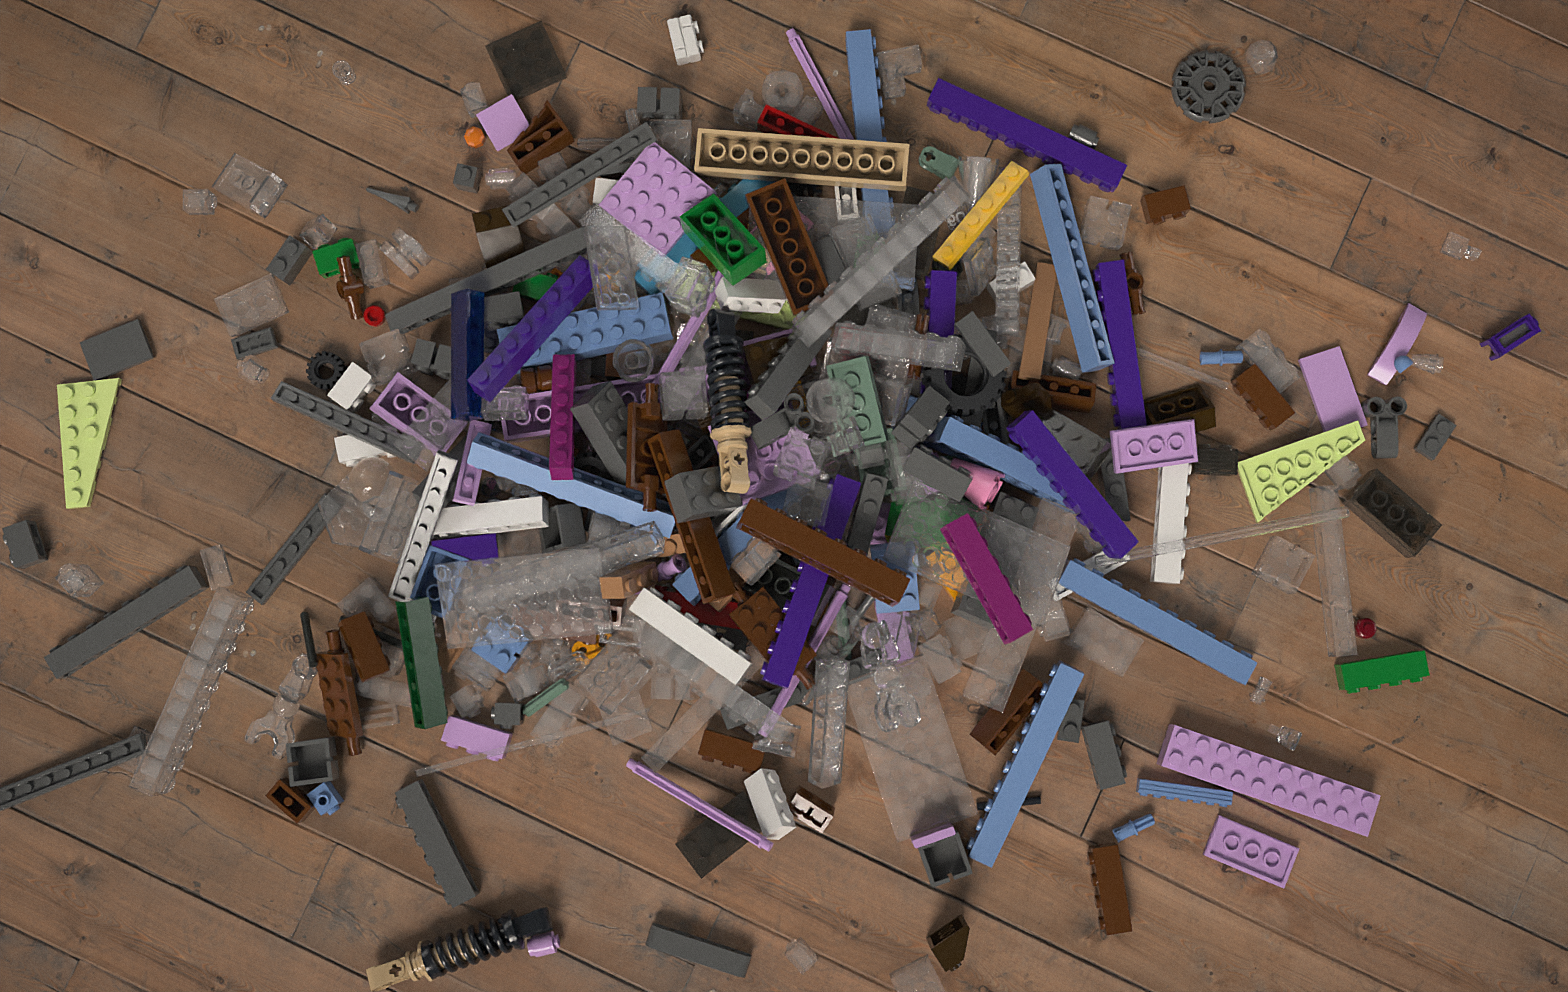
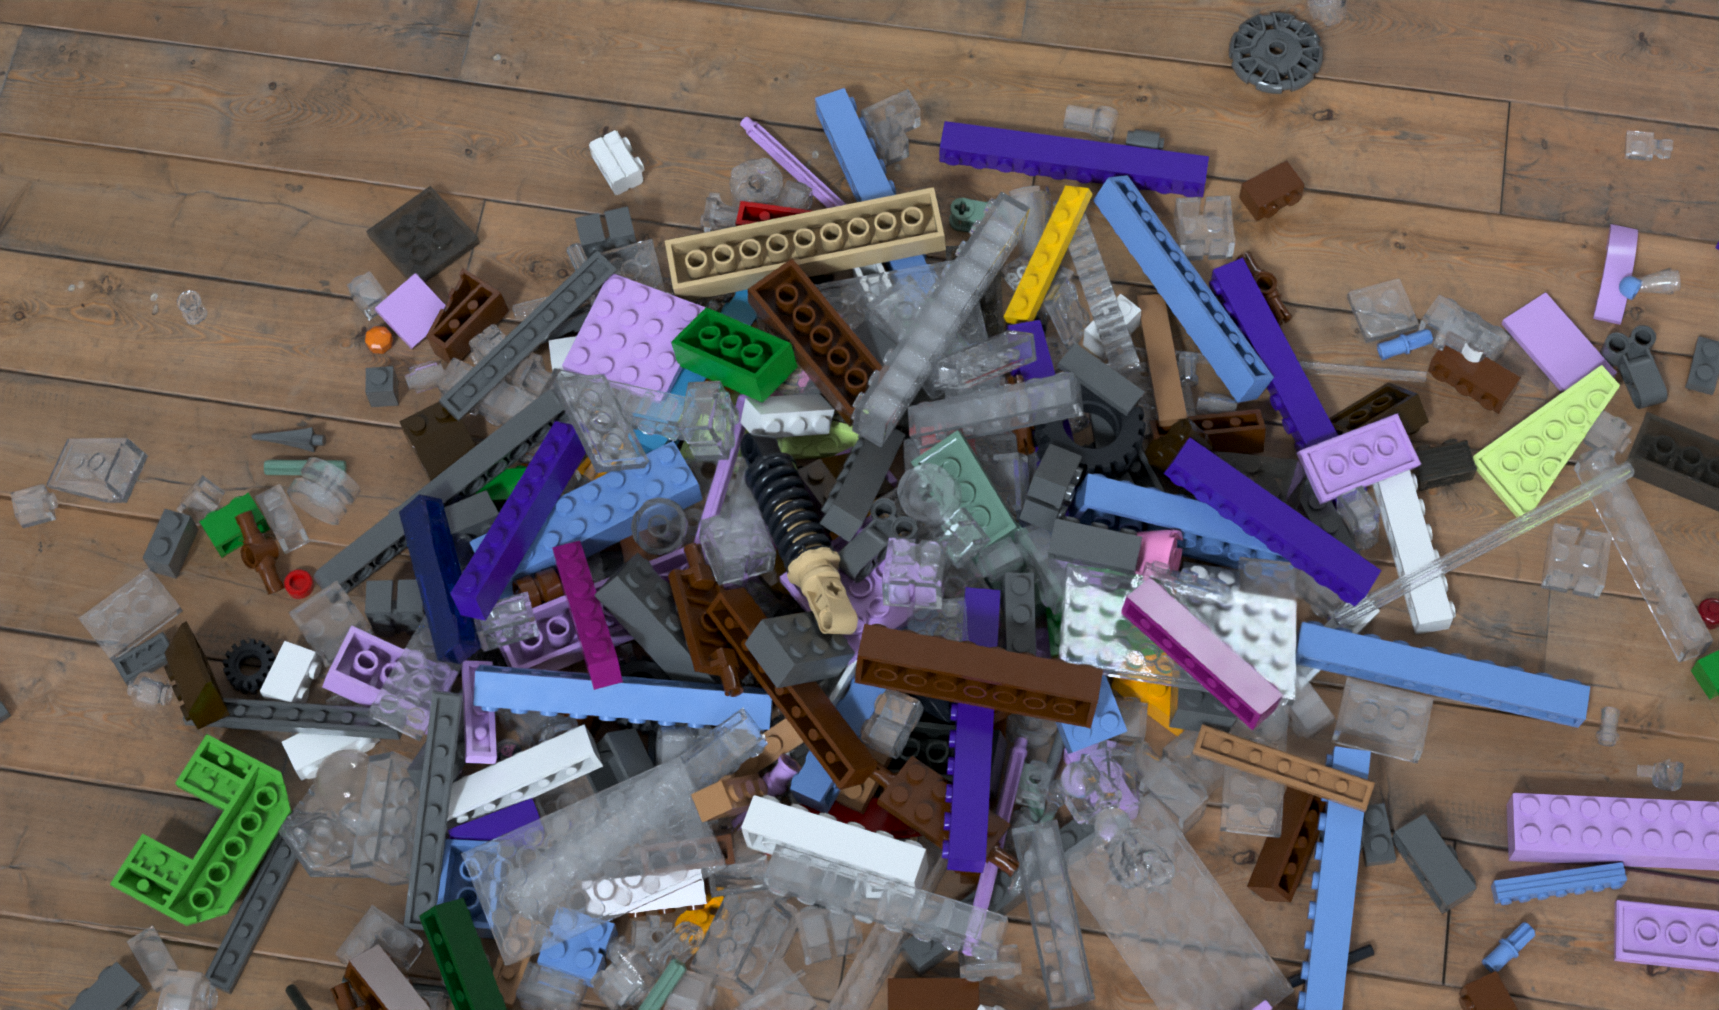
camera: 20 degrees left, 20 degrees down
(278, 514) = (209, 885): none -> bright green slope
(283, 374) = (194, 679): none -> dark brown slope
(392, 224) = (293, 467): none -> sand green axle
(902, 303) = (983, 361): none -> clear brick
(994, 519) = (1187, 581): none -> clear plate
(1019, 668) = (1283, 768): none -> medium nougat tile
(1054, 109) = (1099, 122): none -> clear piece
(1139, 488) = (1360, 517): none -> clear slope
(1214, 326) = (1382, 310): none -> clear plate
(1264, 371) = (1463, 338): none -> clear leg

